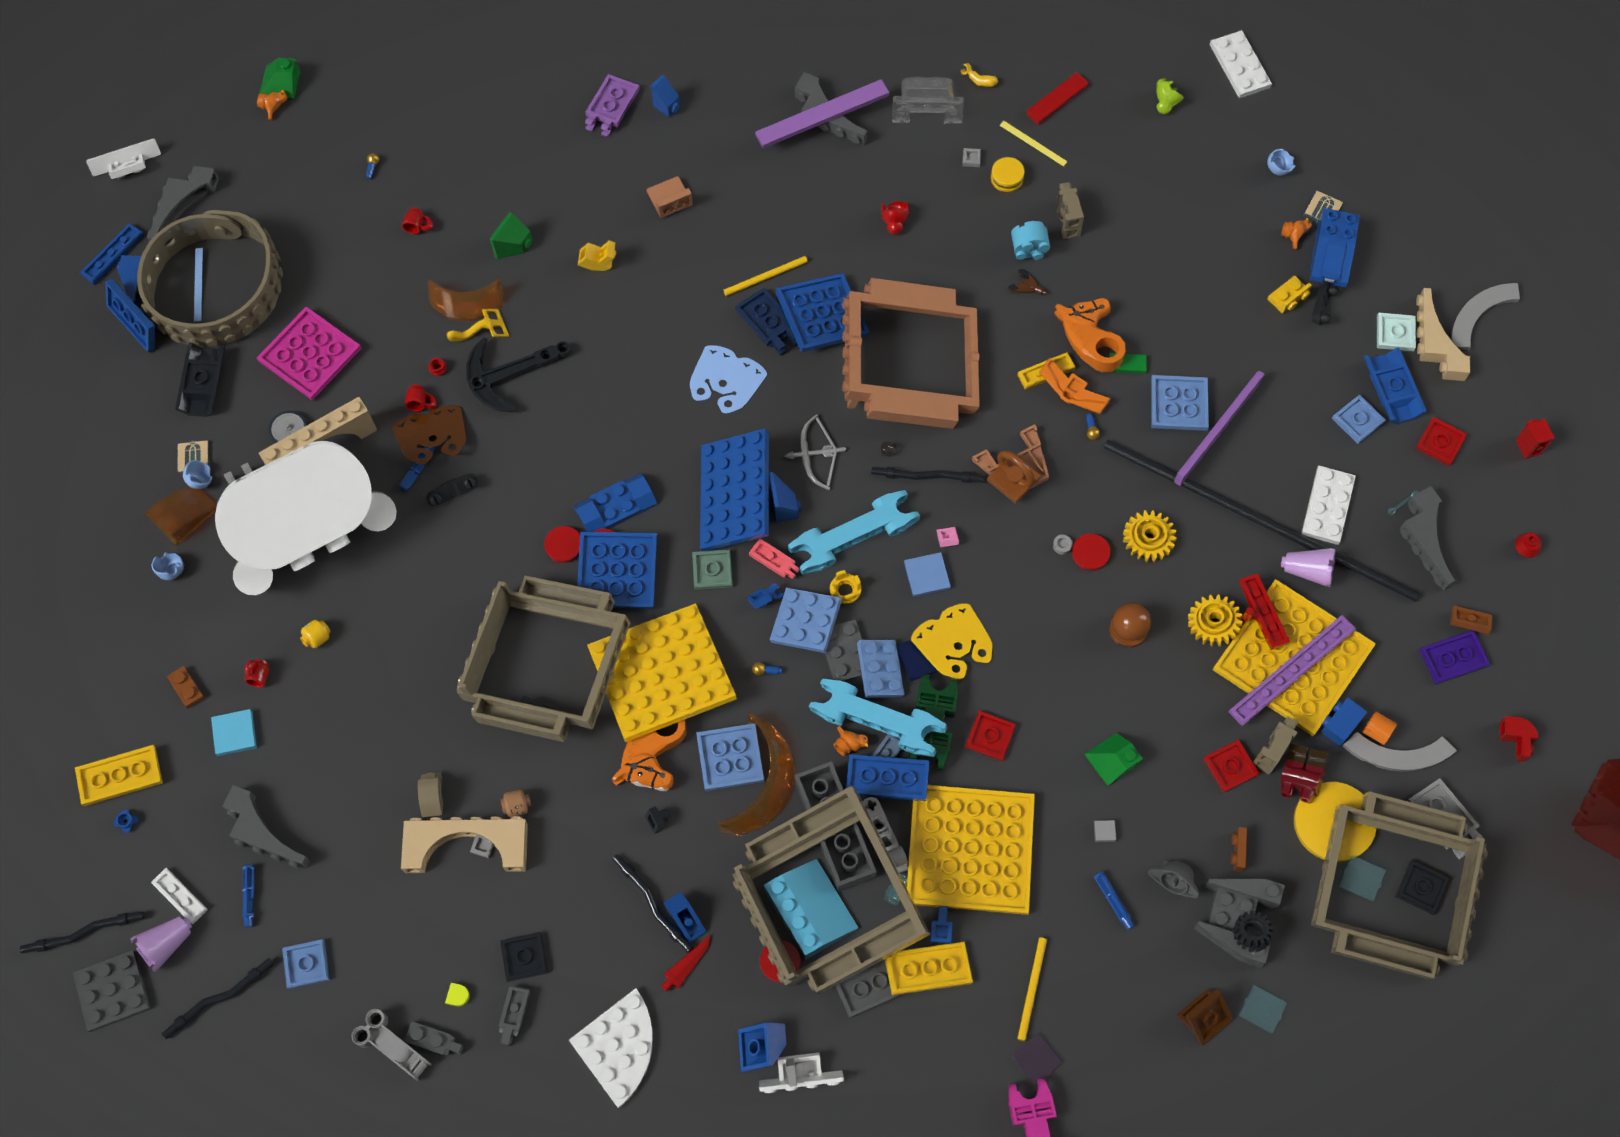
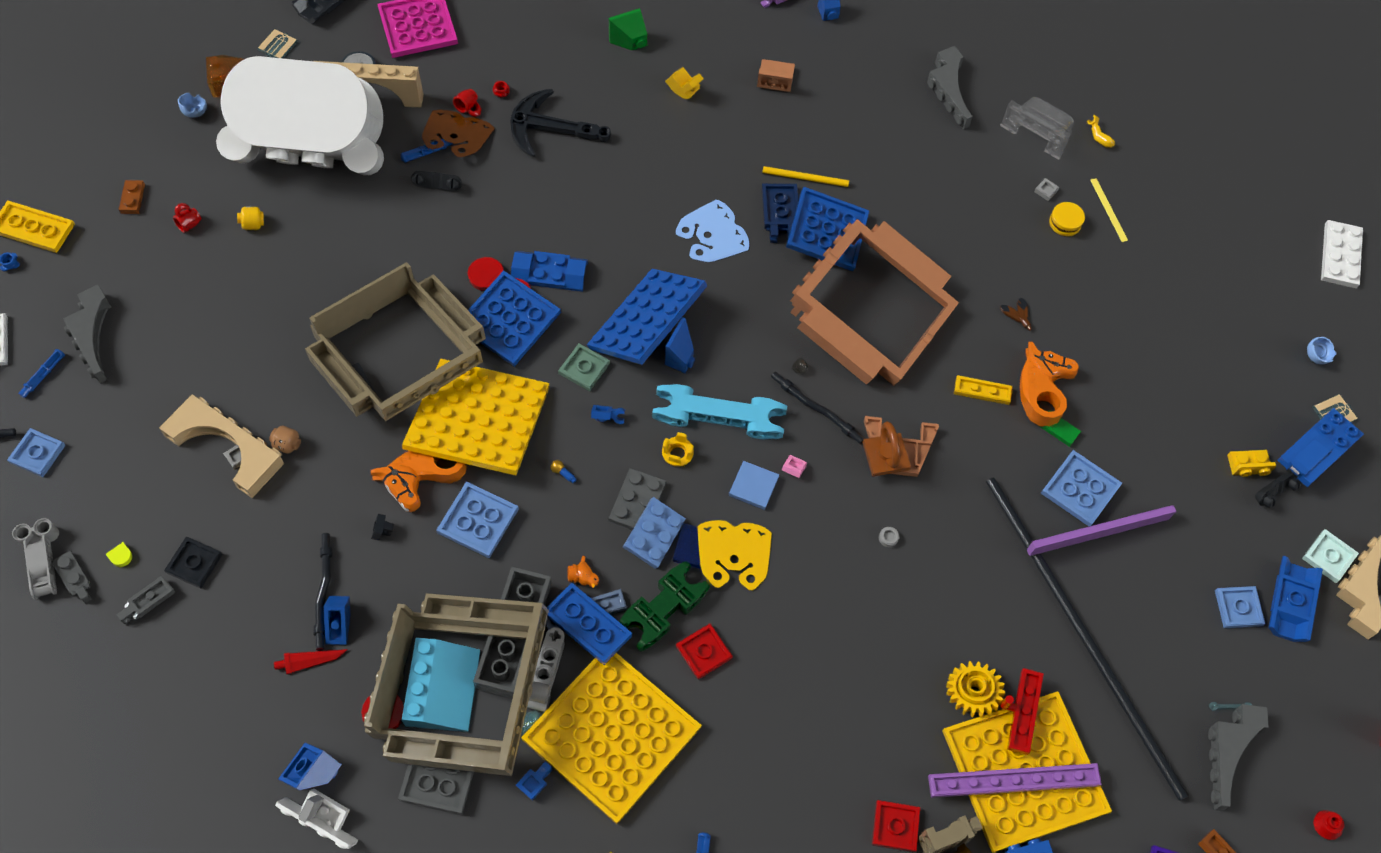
camera: 30 degrees right, 5 degrees down
(197, 474) = (266, 49): light blue hair -> none
(233, 732) = (135, 250): medium azure tile -> none
(430, 794) = (227, 389): dark tan brick -> none
(465, 305) = (562, 60): clear orange windscreen -> none
(488, 323) = (561, 79): yellow piece -> none
(618, 1047) = (202, 686): white plate -> none
(773, 559) = (638, 390): coral hinge -> none
(776, 789) = (495, 567): clear orange windscreen -> none
(805, 620) = (624, 453): medium blue plate -> none
(822, 113) = (945, 82): medium lavender tile -> none
(826, 451) = (748, 337): light grey piece -> none
(895, 215) = (946, 194): red piece -> none
(908, 728) = (635, 596): medium azure piece -> none
(928, 968) = (495, 807): yellow tile -> none
(1030, 240) = (1046, 278): medium azure brick -> none
(1057, 98) = (1156, 187): red tile -> none
(1069, 211) = (1097, 276): dark tan hips -> none
(1072, 389) = (994, 417): orange plate -> none
(1091, 552) = (909, 559): red tile -> none
(1092, 433) = (986, 463): piece -> none
(1105, 831) = (739, 801): light grey tile -> none
(1114, 758) = (794, 745): green slope -> none
(1130, 624) = (895, 641): dark orange tile -> none
(1145, 546) = (970, 591): yellow gear -> none
(1167, 96) = (1254, 239): lime piece -> none
(1295, 230) = (1295, 414): orange animal -> none
(1311, 565) = (1101, 702): lavender cone -> none
(1328, 505) = (1156, 661): white plate -> none
(1441, 441) = (1306, 676): red tile -> none

